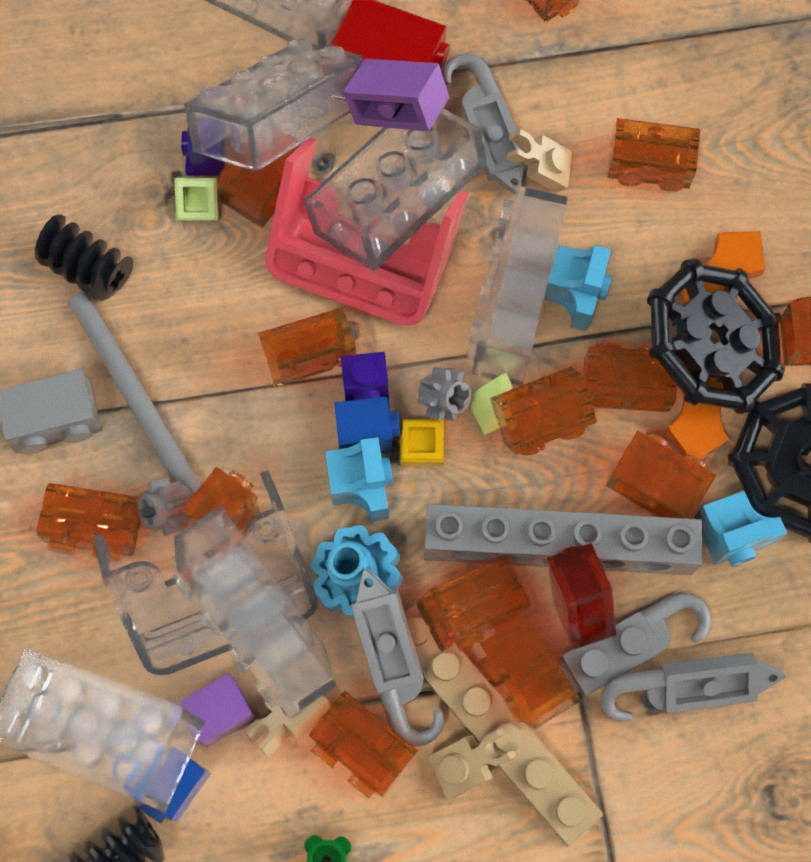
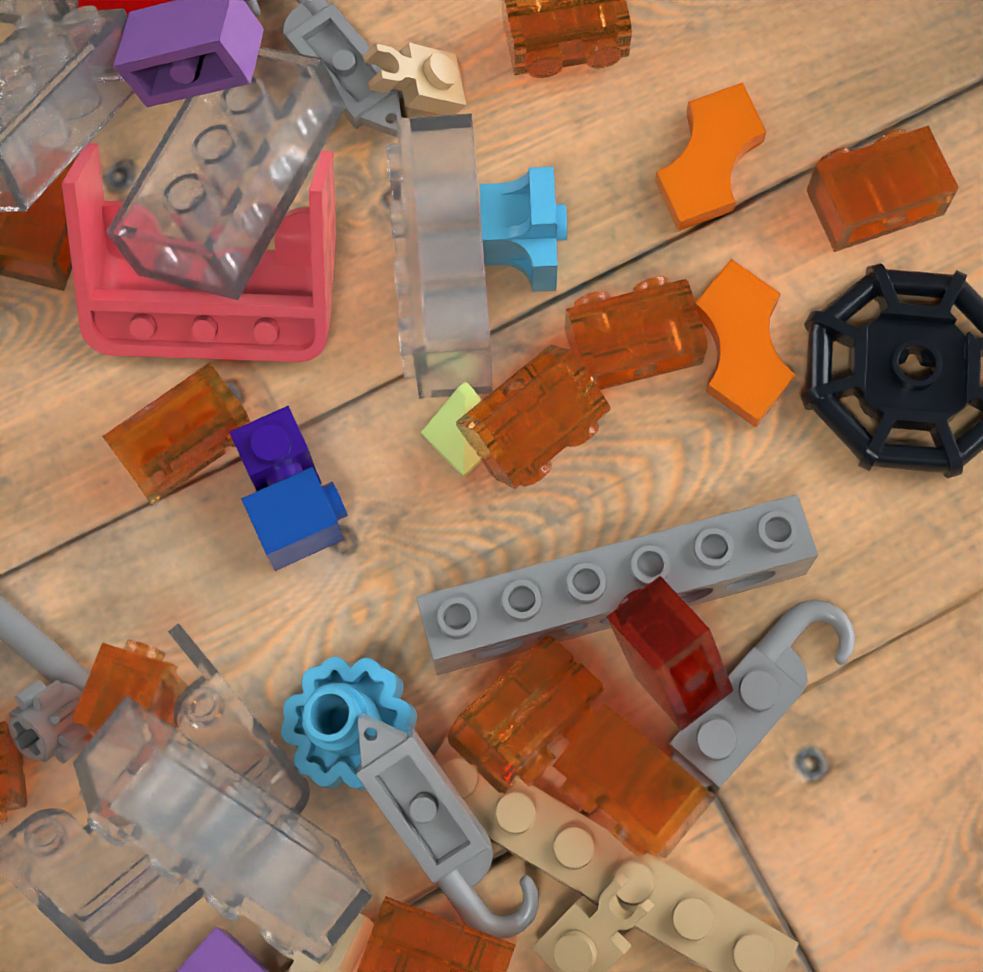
camera: 15 degrees left, 0 degrees up
(360, 477) = (311, 591): medium azure brick -> none
(421, 442) = (380, 514): yellow tile -> none
(444, 393) = (390, 437): light grey gear -> none
(661, 477) = (722, 456): clear orange brick -> none
(694, 684) = (861, 722): light grey plate -> none
(736, 331) = (707, 274): black plate -> none
(736, 530) = (847, 493): medium azure brick -> none

